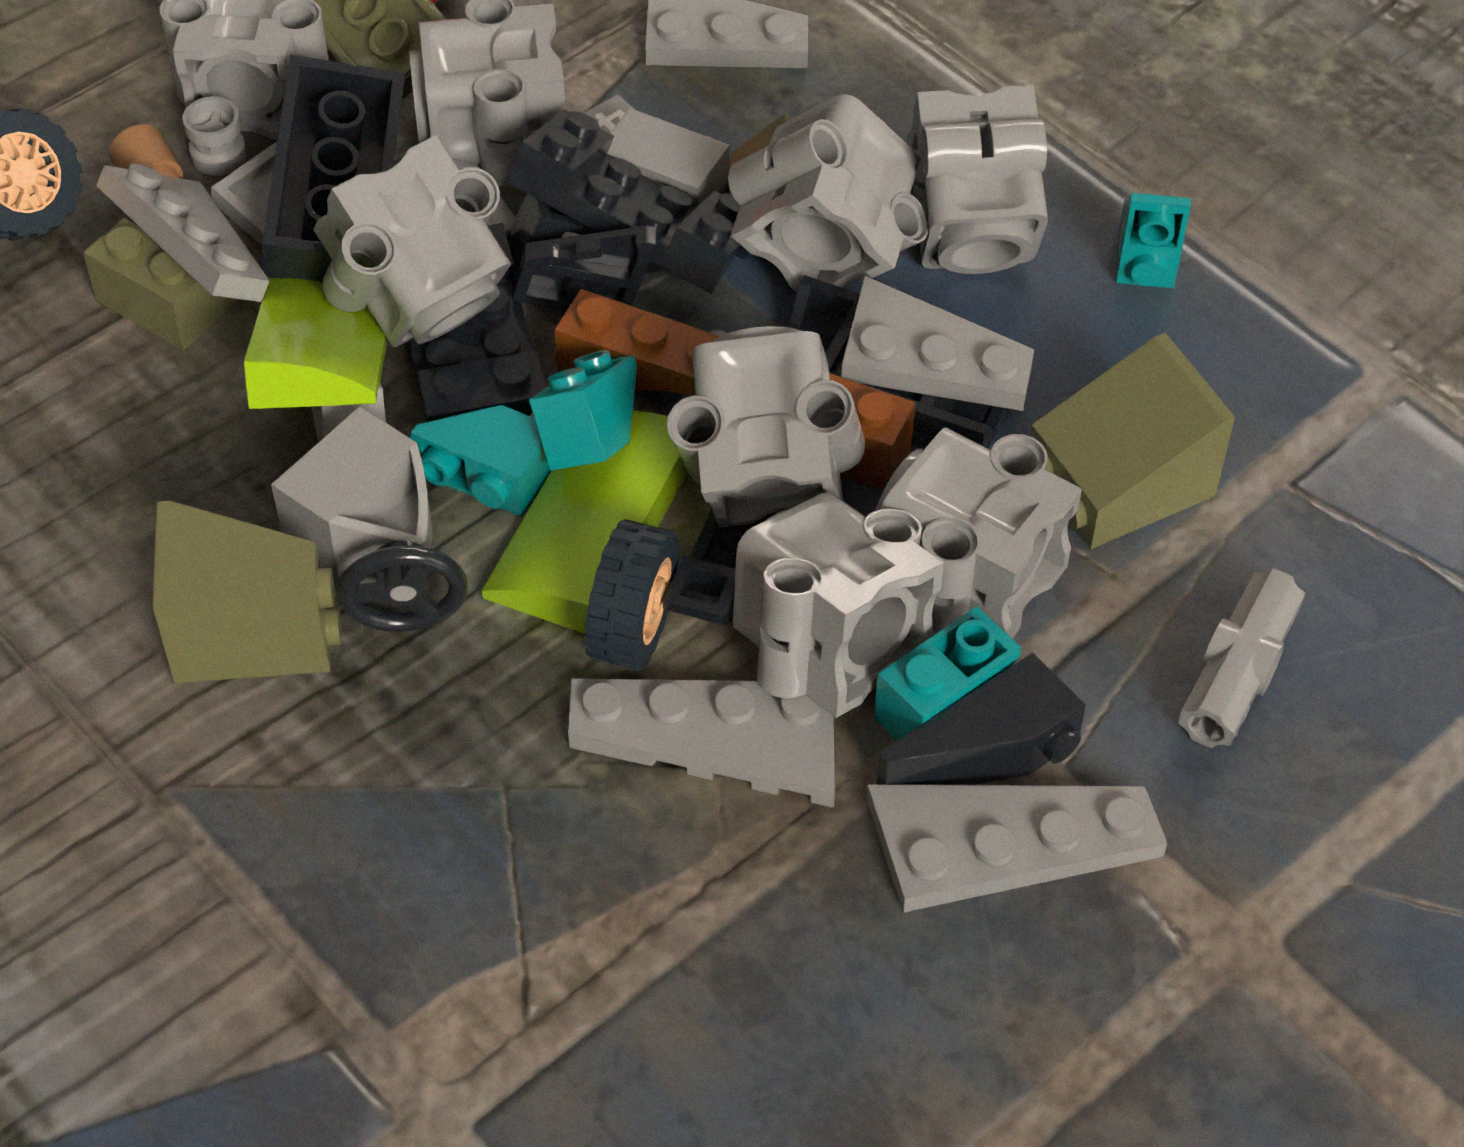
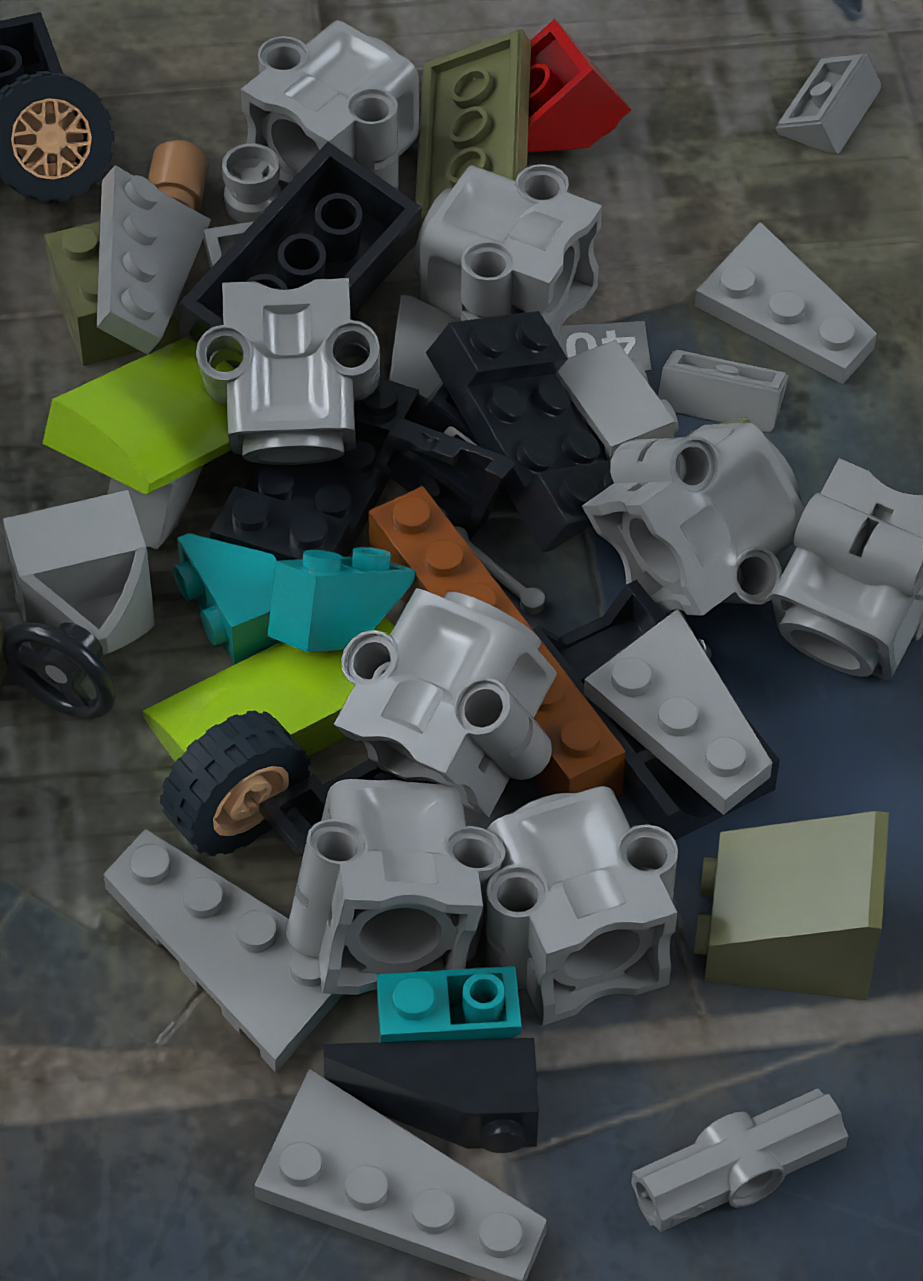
camera: 35 degrees right, 0 degrees up
(728, 112) = (722, 389): none -> light grey slope

